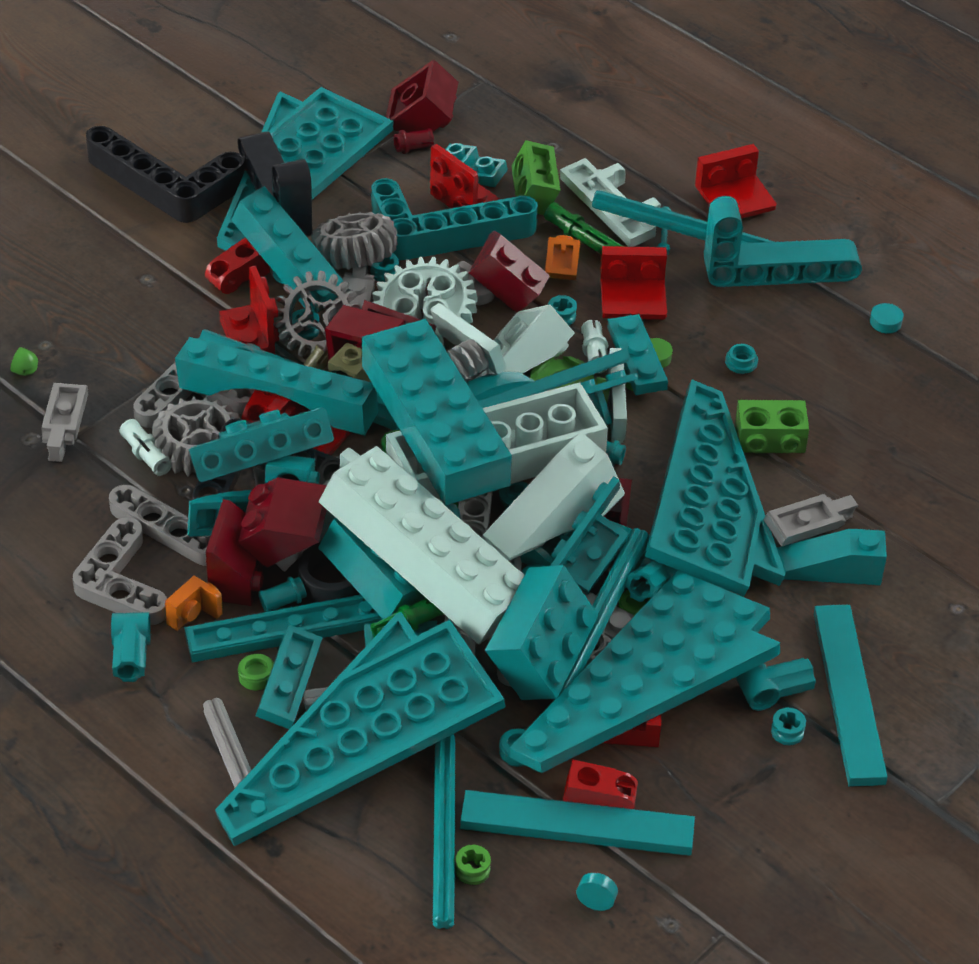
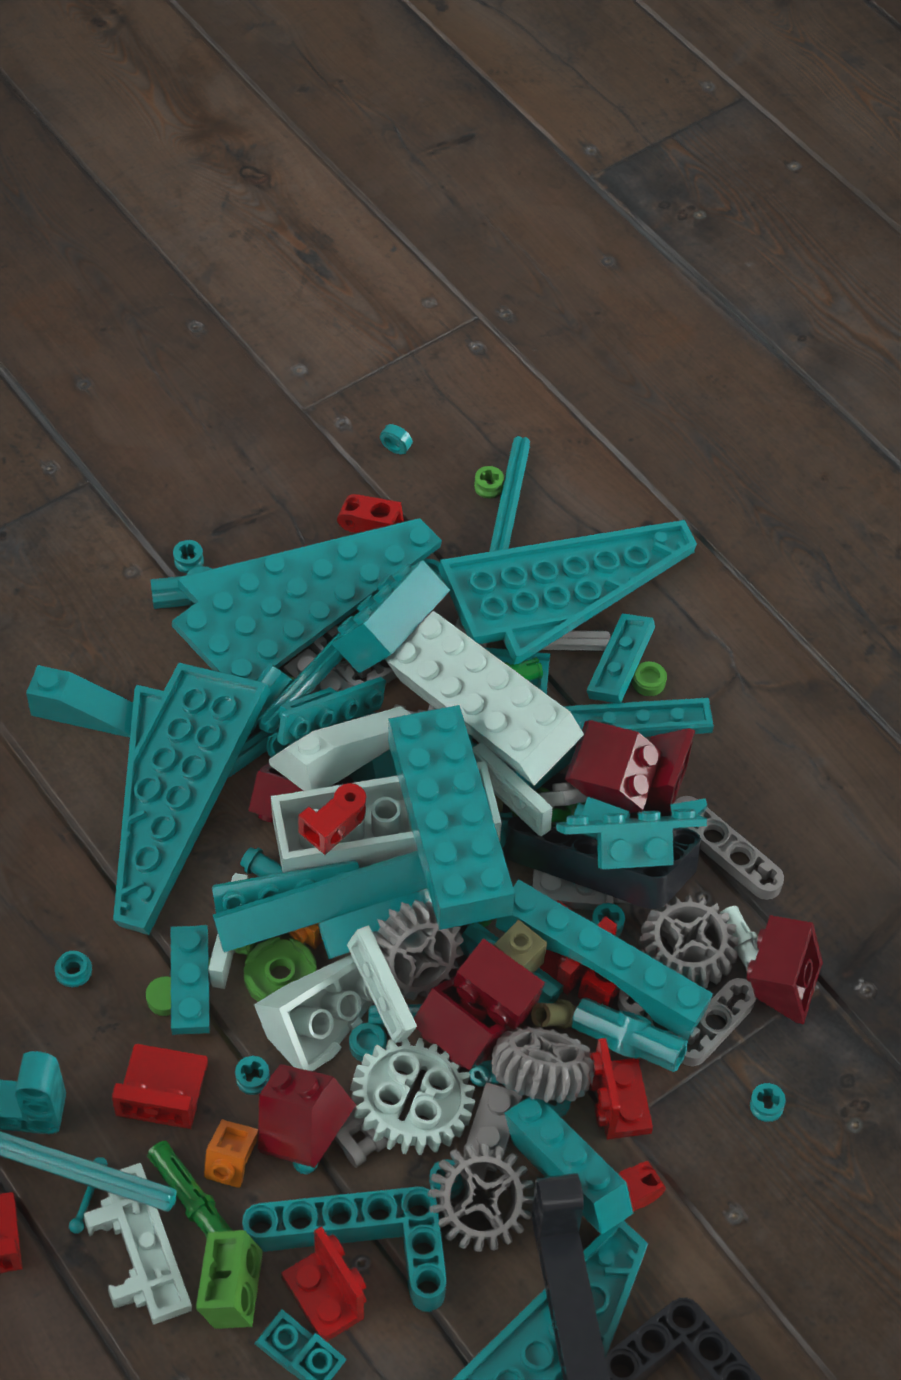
camera: 170 degrees left, 10 degrees up
(24, 362) = (877, 1083): bright green hinge -> none
(63, 418) = (832, 996): light grey hinge -> none
(108, 409) = (786, 966): none -> dark red slope
(109, 578) = (783, 789): light grey beam -> none
(121, 335) = (777, 1097): none -> teal bush
(129, 637) = (764, 719): teal piece -> none
(189, 600) = (710, 744): orange bracket -> none
(226, 740) = (680, 611): light grey axle -> none
(541, 399) = (335, 819): none -> red leg
(577, 822) = (436, 513): teal tile -> none
(594, 342) = (232, 1003): light aqua pin -> none
(772, 426) = (75, 871): bright green brick -> none
(809, 518) = (84, 745): light grey hinge -> none
(850, 696) = (121, 581): teal tile -> none

